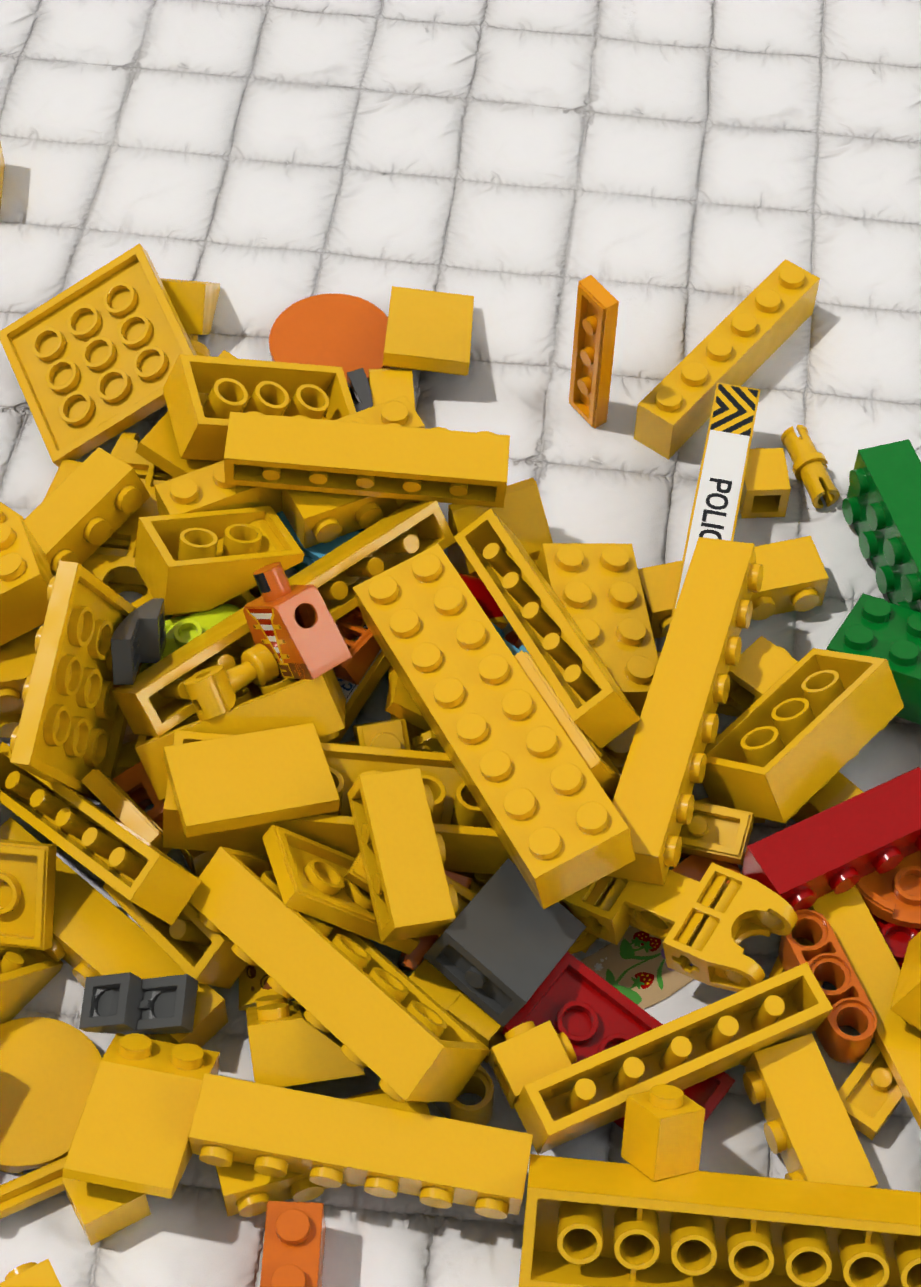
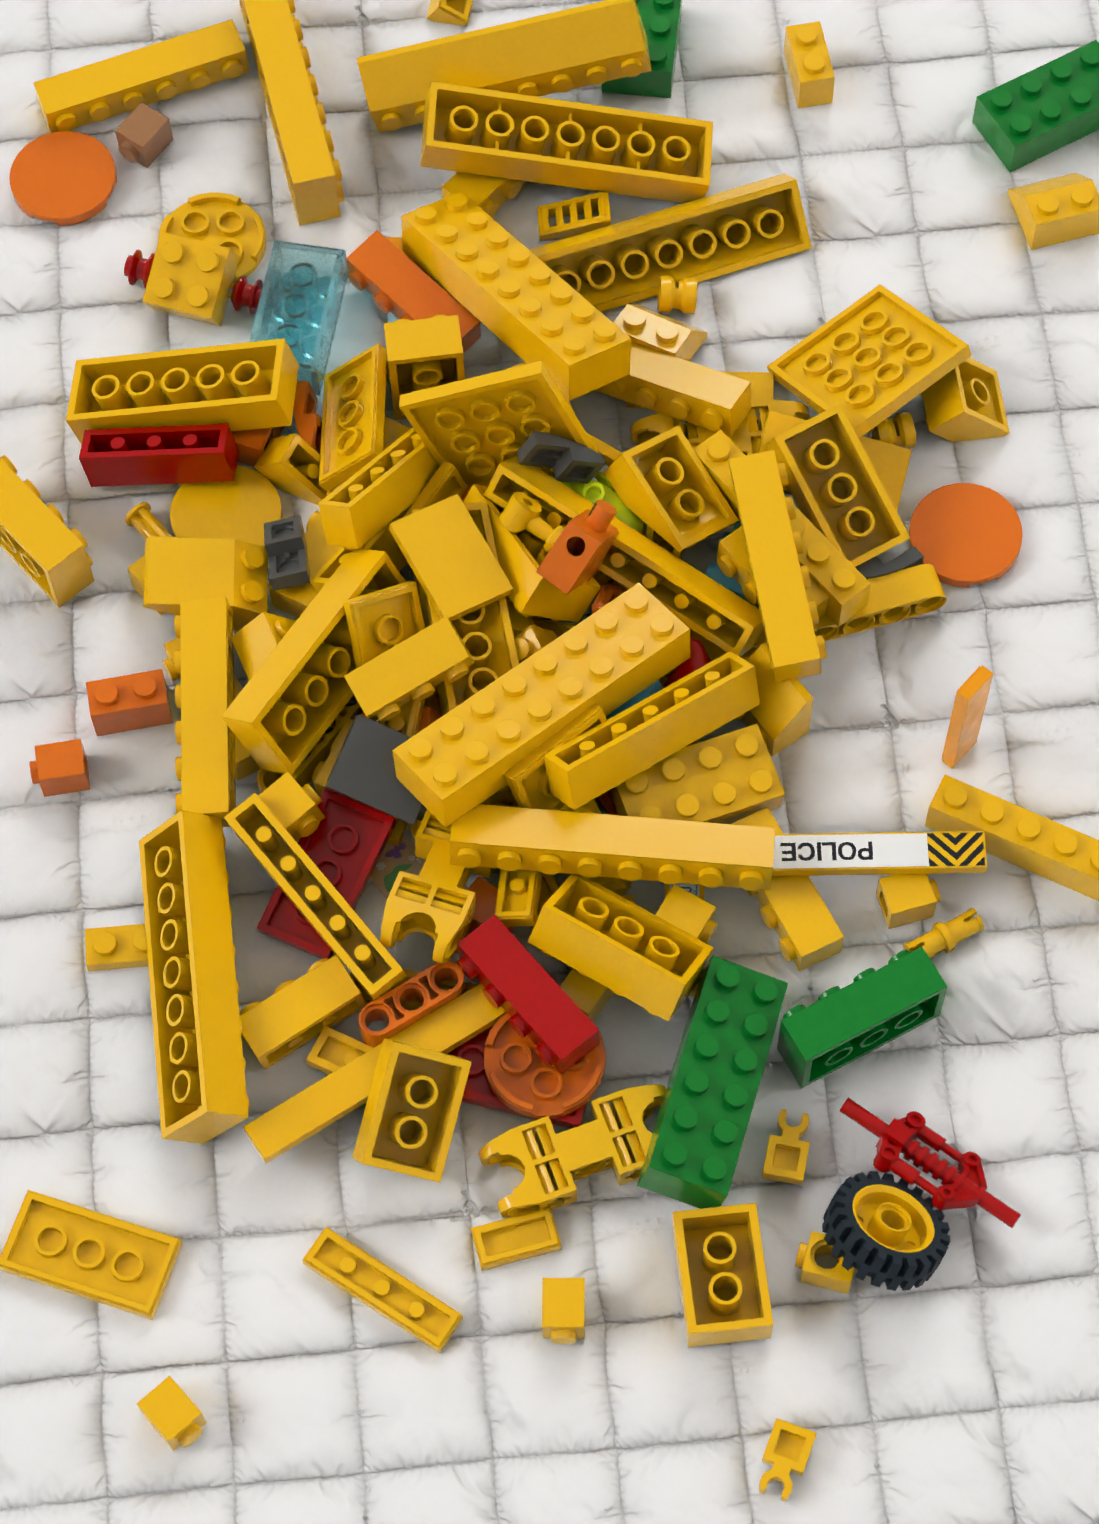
camera: 80 degrees right, 10 degrees up
(429, 331) = (993, 600): yellow tile -> none
(662, 1132) = (246, 894): yellow brick -> none

